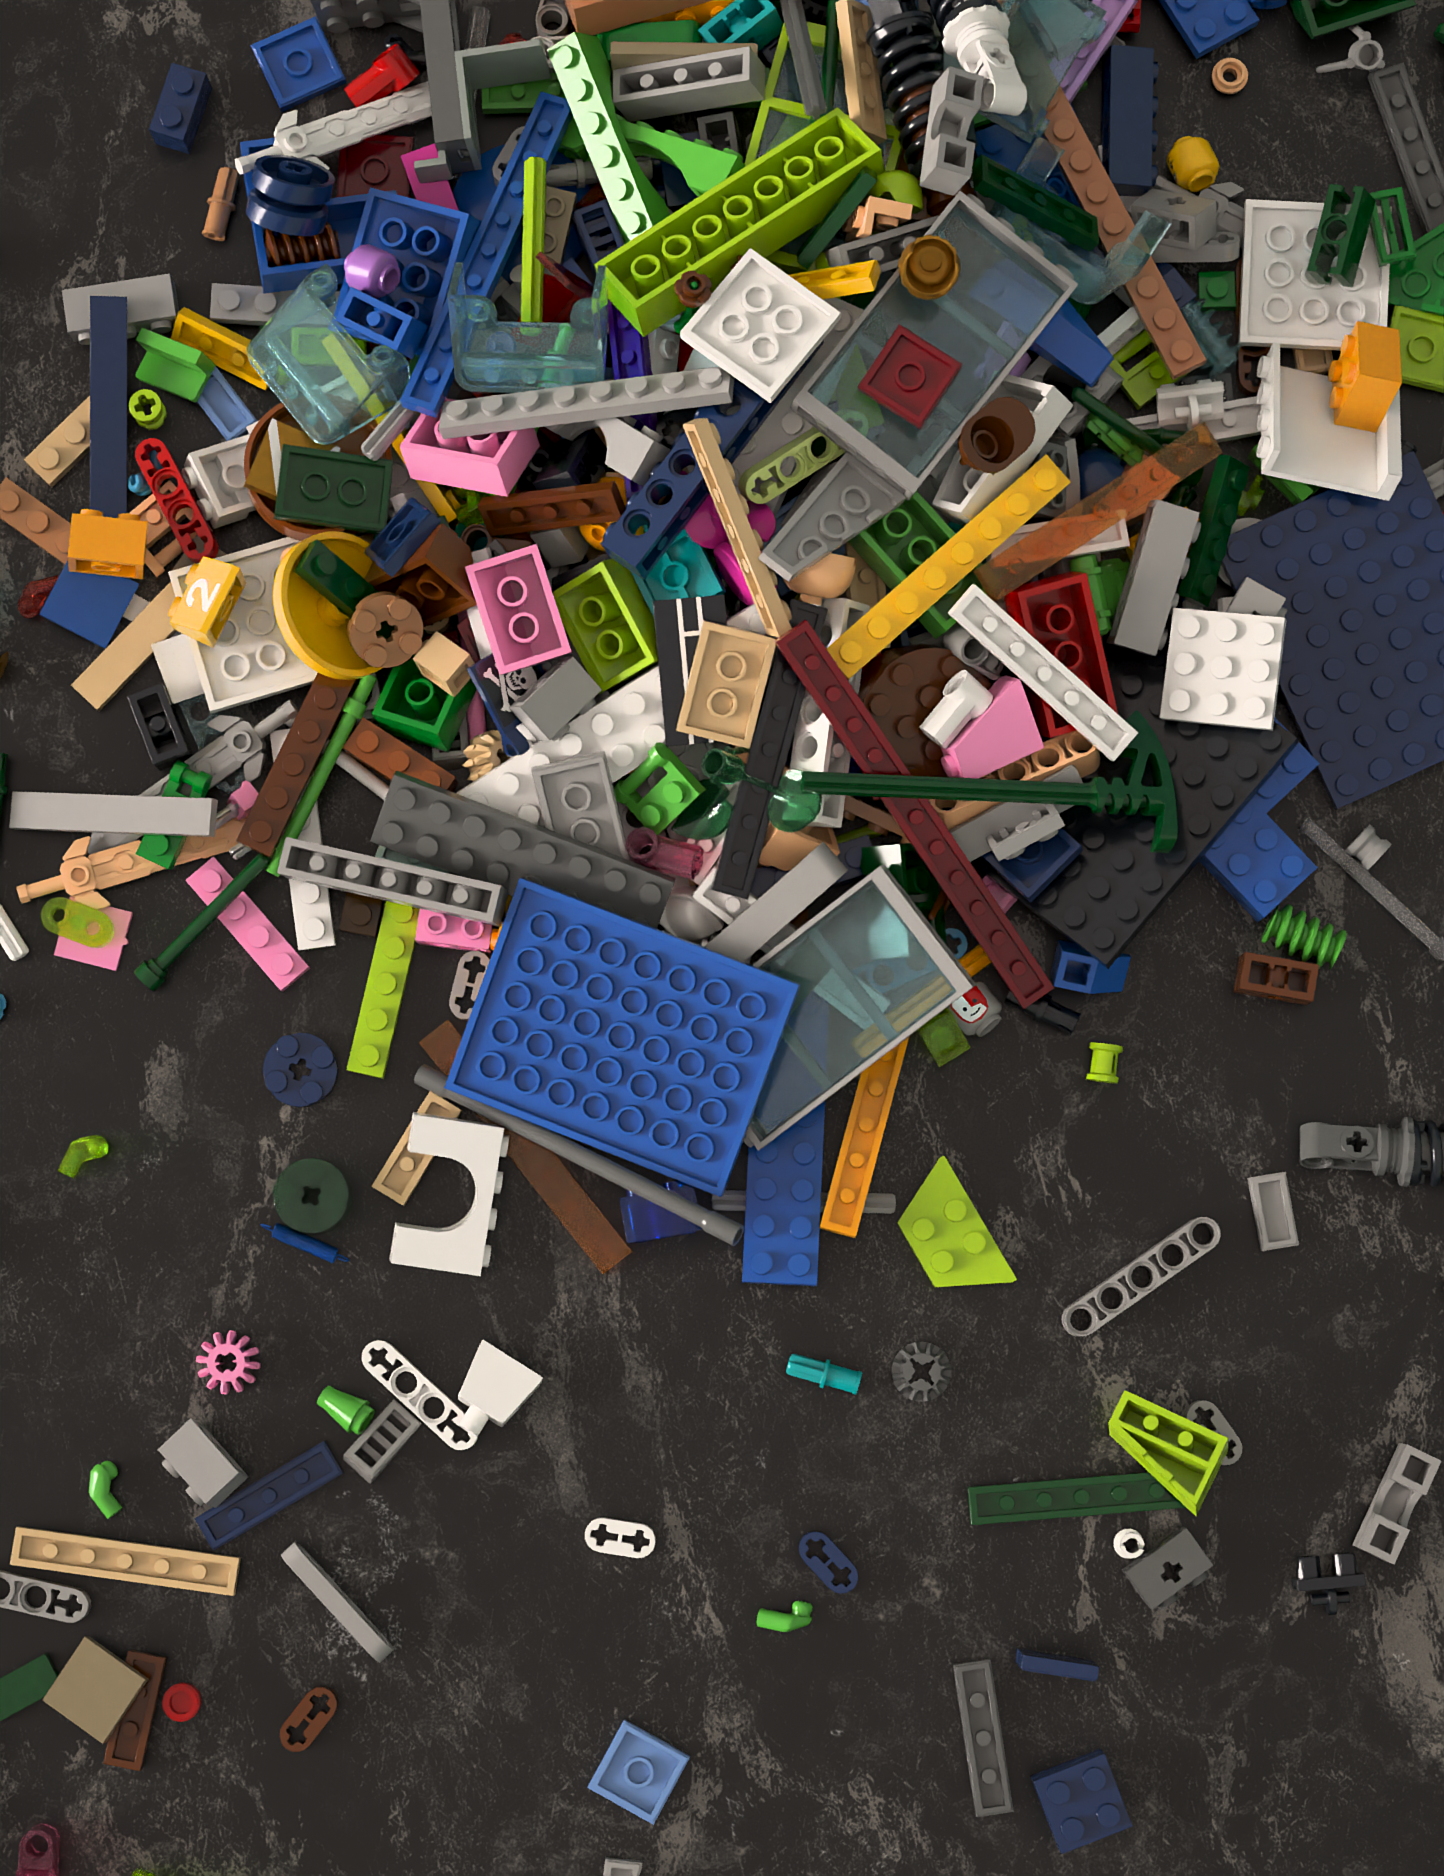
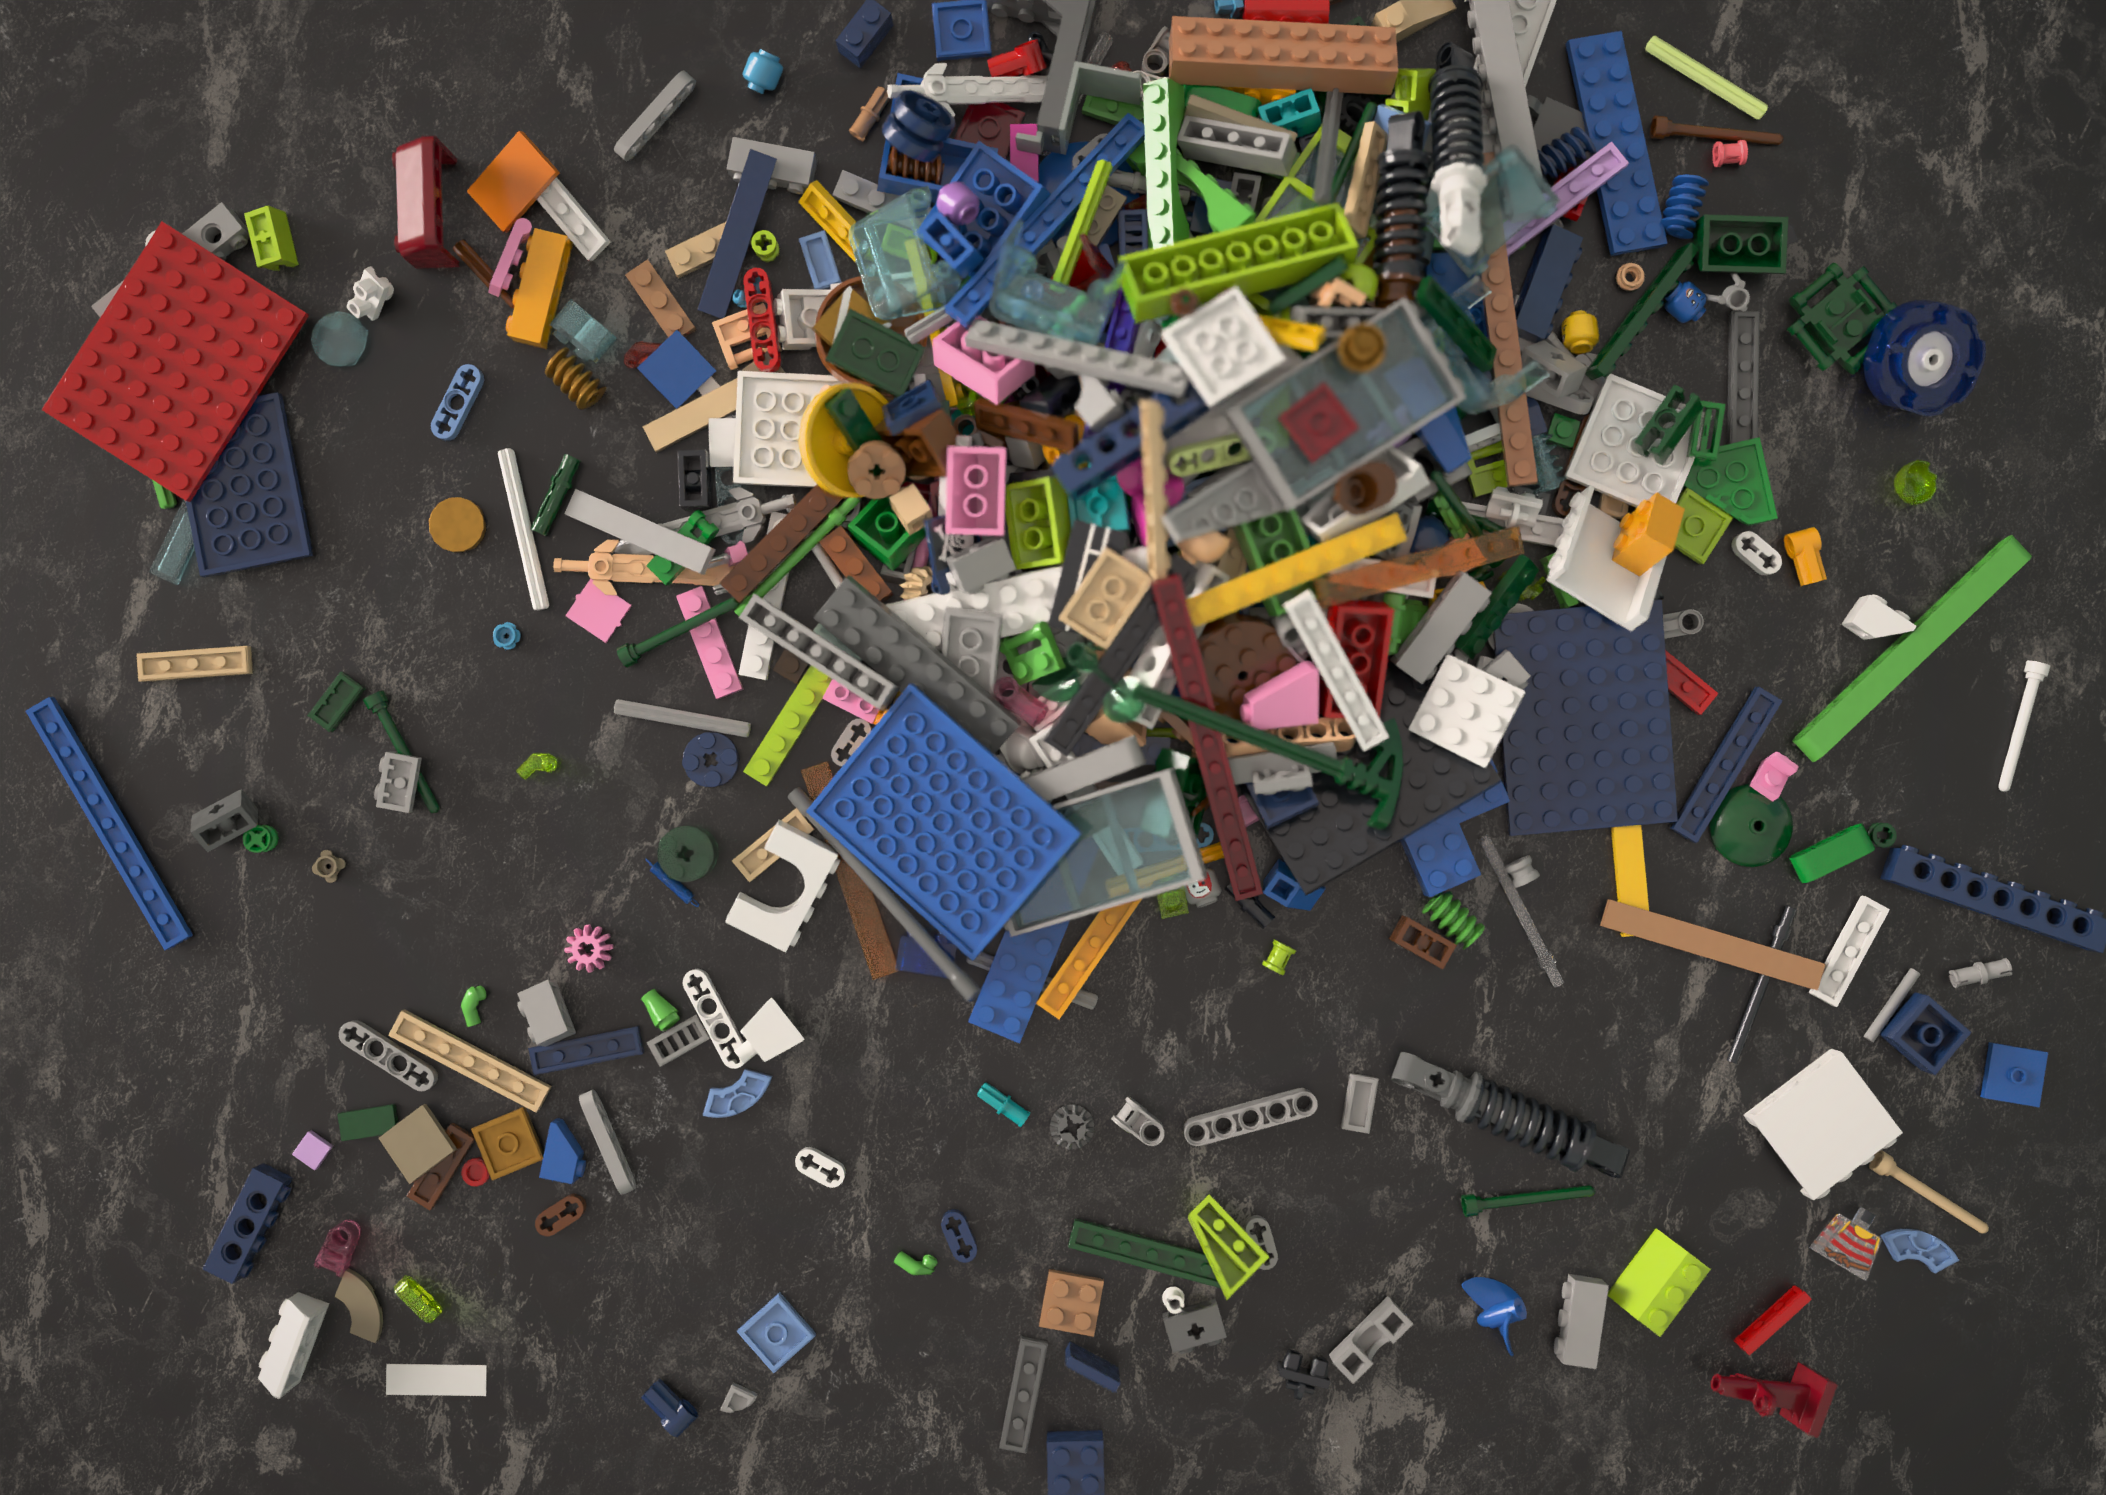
camera: 15 degrees right, 5 degrees up
(70, 198) = (762, 71): none -> dark azure head
(76, 922) = (589, 598): clear neon green plate -> none
(107, 544) = (700, 336): light orange brick -> none
(173, 366) = (794, 221): bright green panel -> none
(207, 600) = (757, 402): yellow slope -> none
(210, 1649) = (508, 1143): none -> pearl gold plate
(246, 1030) = (682, 718): none -> light grey axle
(285, 1639) = (562, 1155): none -> blue slope
(483, 1485) = (737, 1097): none -> medium blue tile
(947, 153) = (1406, 265): light grey arch -> none
(951, 1234) = (1127, 1038): lime wing -> none
(962, 701) = (1271, 670): white piece -> none
(1001, 1333) = (1138, 1121): none -> light grey piece
(1001, 1597) = (1071, 1302): none -> medium nougat plate
(1263, 100) = (1647, 305): none -> dark green plate
(1308, 82) = (1685, 302): none -> blue head

